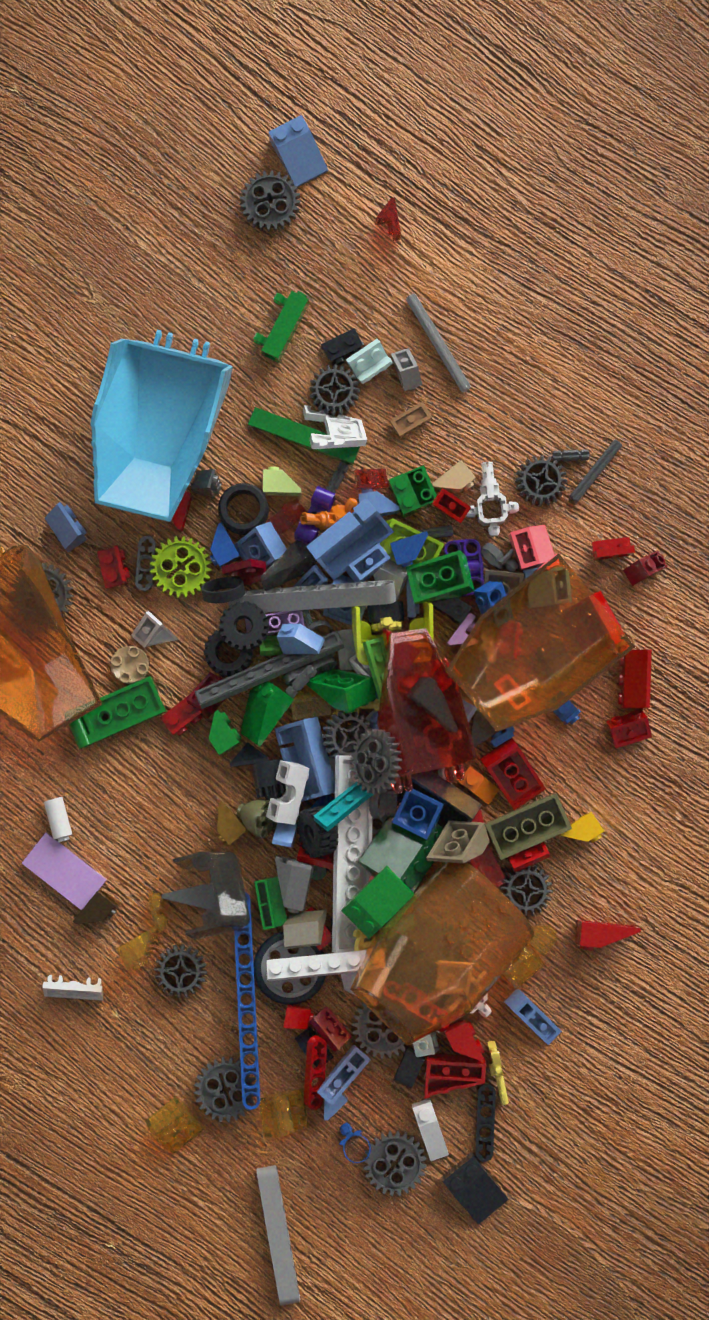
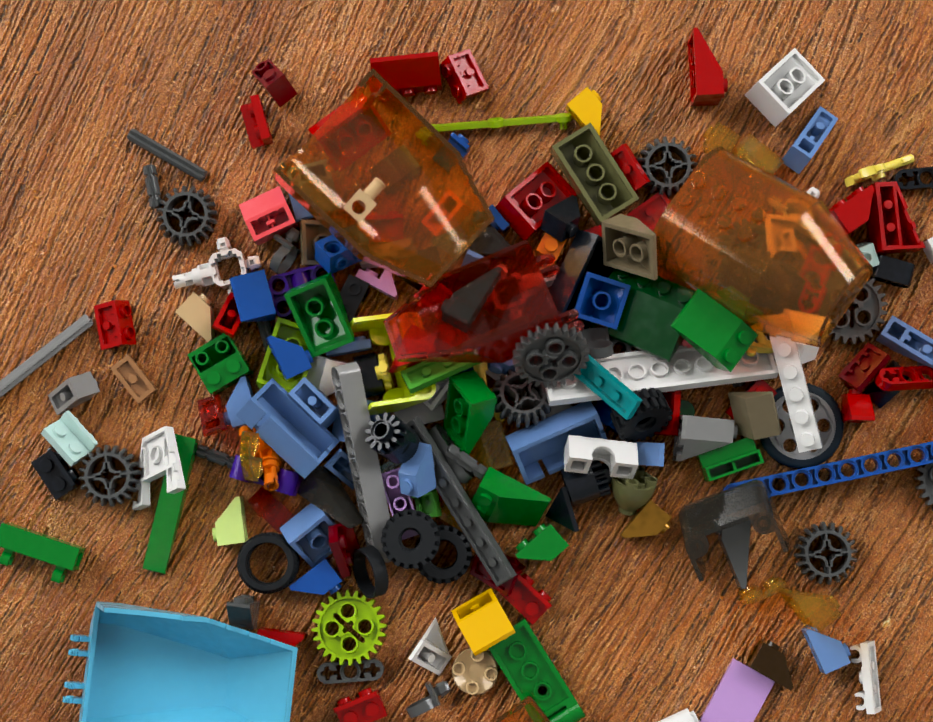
camera: 90 degrees left, 0 degrees up
(100, 958) = (827, 651): none -> medium blue slope
(111, 625) = (429, 702): none -> dark grey piece
(168, 676) = (483, 621): none -> yellow slope
(322, 505) = (251, 466): none -> clear yellow slope
(328, 622) = (392, 438): none -> black gear
(458, 410) = (115, 324): none -> red bracket
(463, 525) = (253, 297): none -> blue slope
(492, 792) = (562, 219): none -> black slope
(531, 629) = (365, 199): none -> tan bracket
(580, 807) = (497, 122): none -> lime piece
(581, 1002) = (784, 87): none -> white slope

